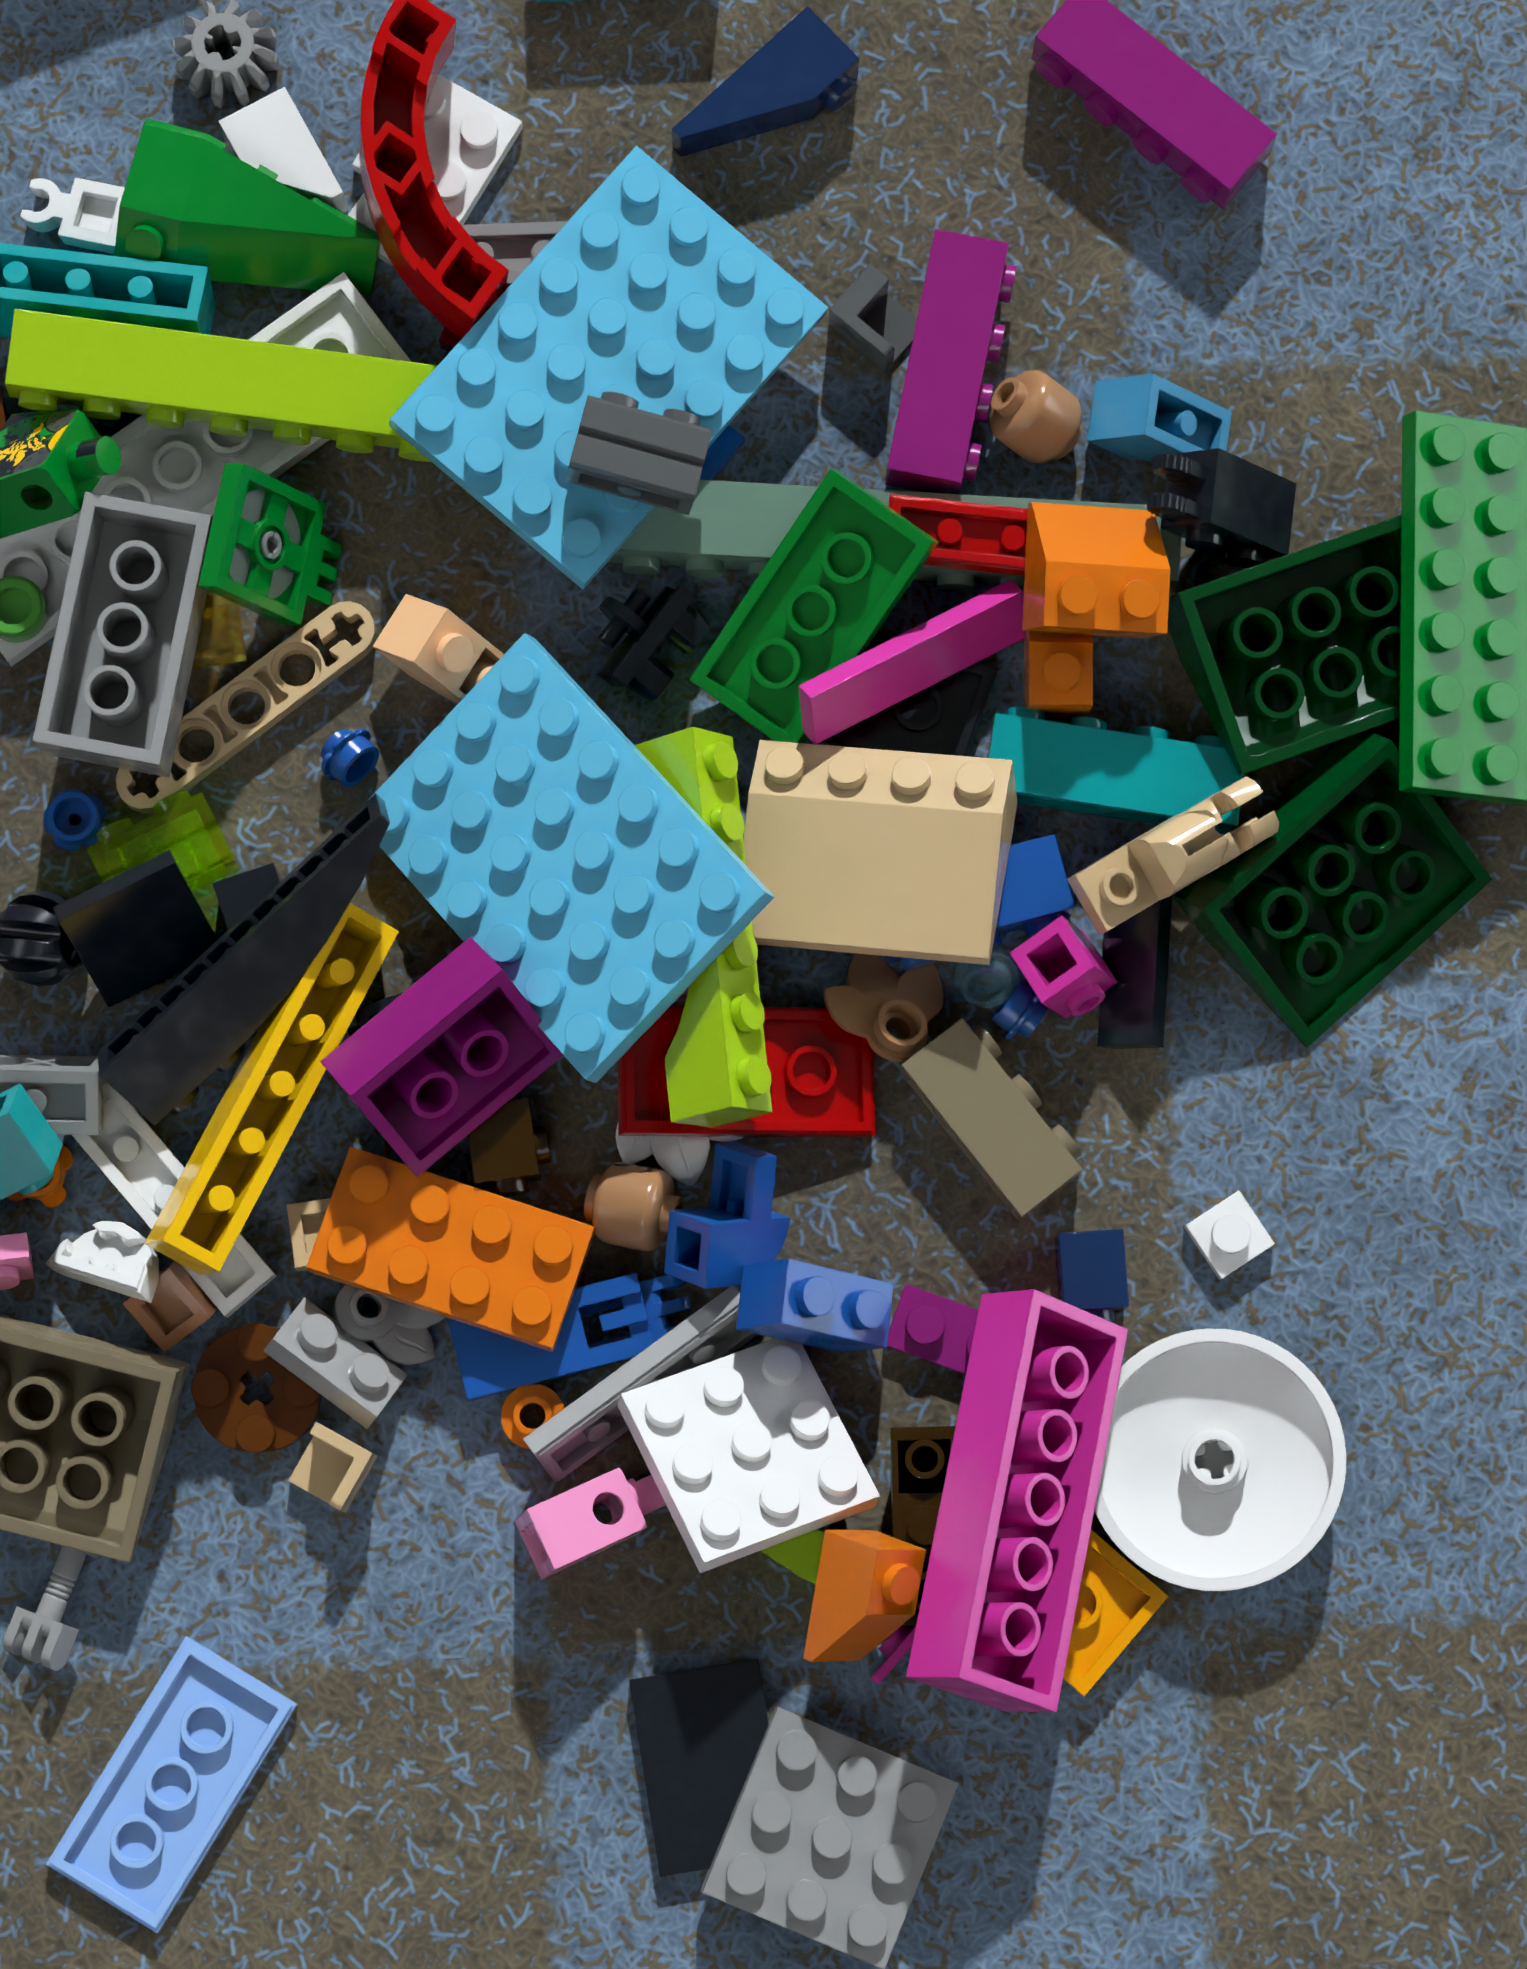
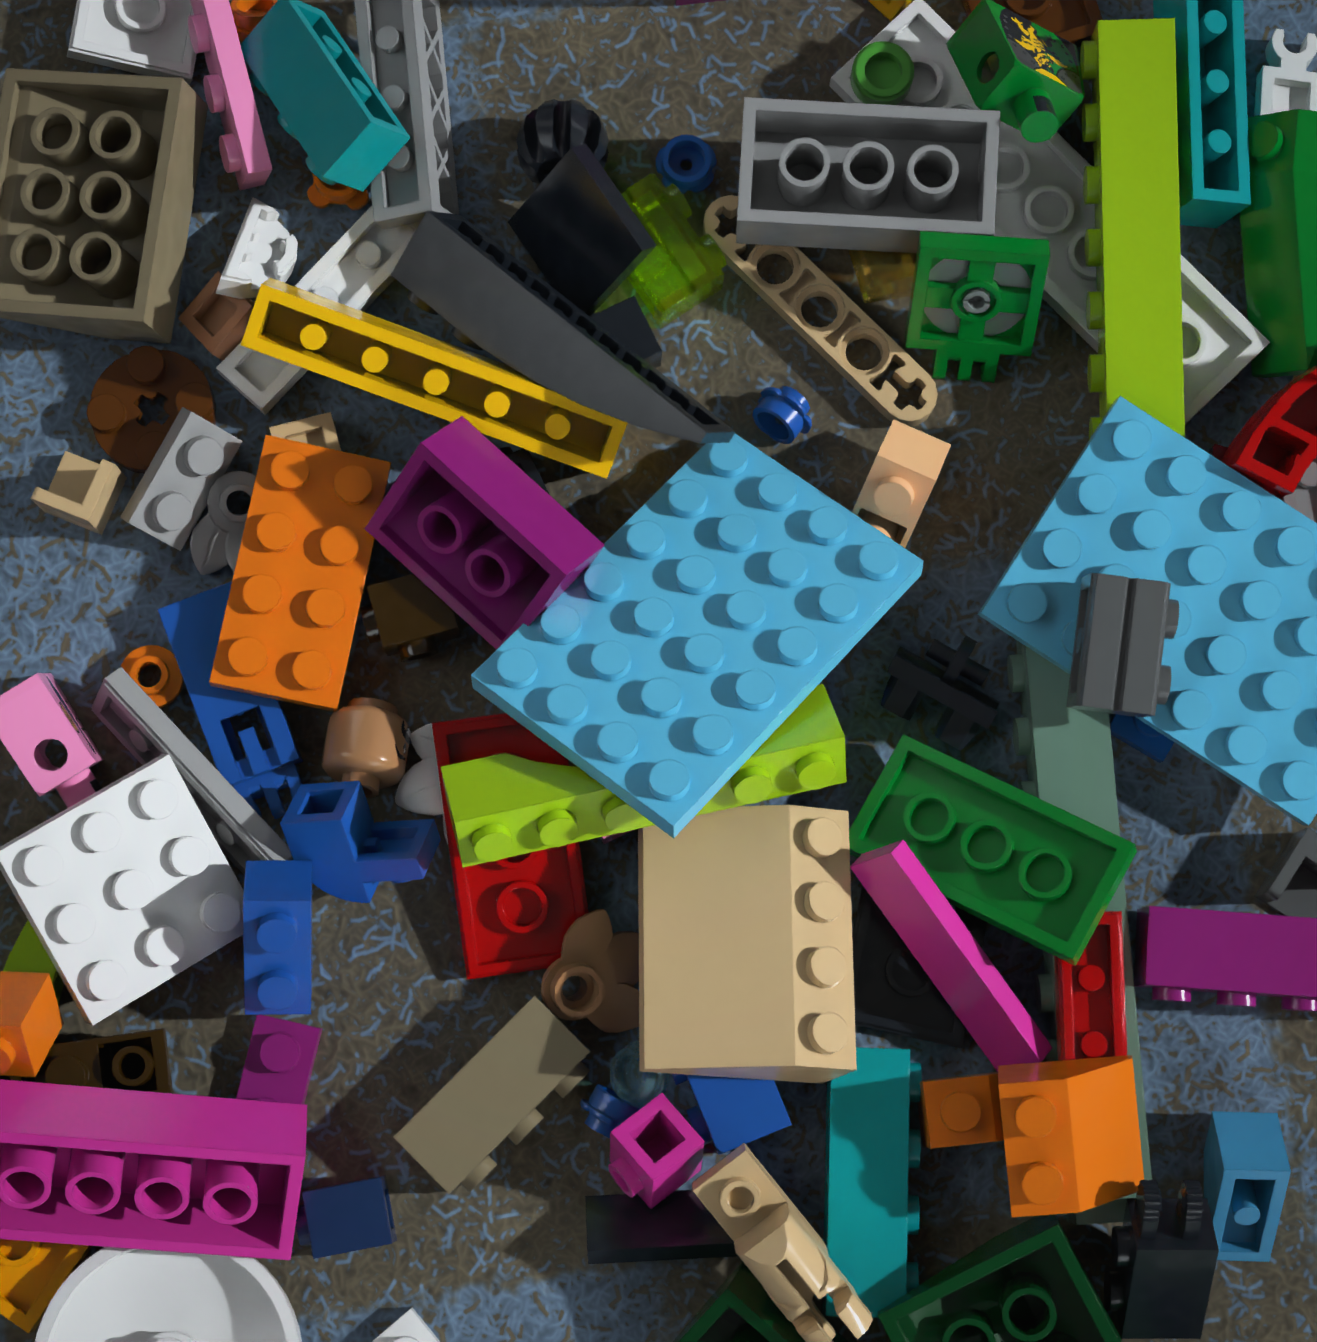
camera: 80 degrees right, 0 degrees up
(1035, 417) = (1229, 1055): medium nougat head -> none

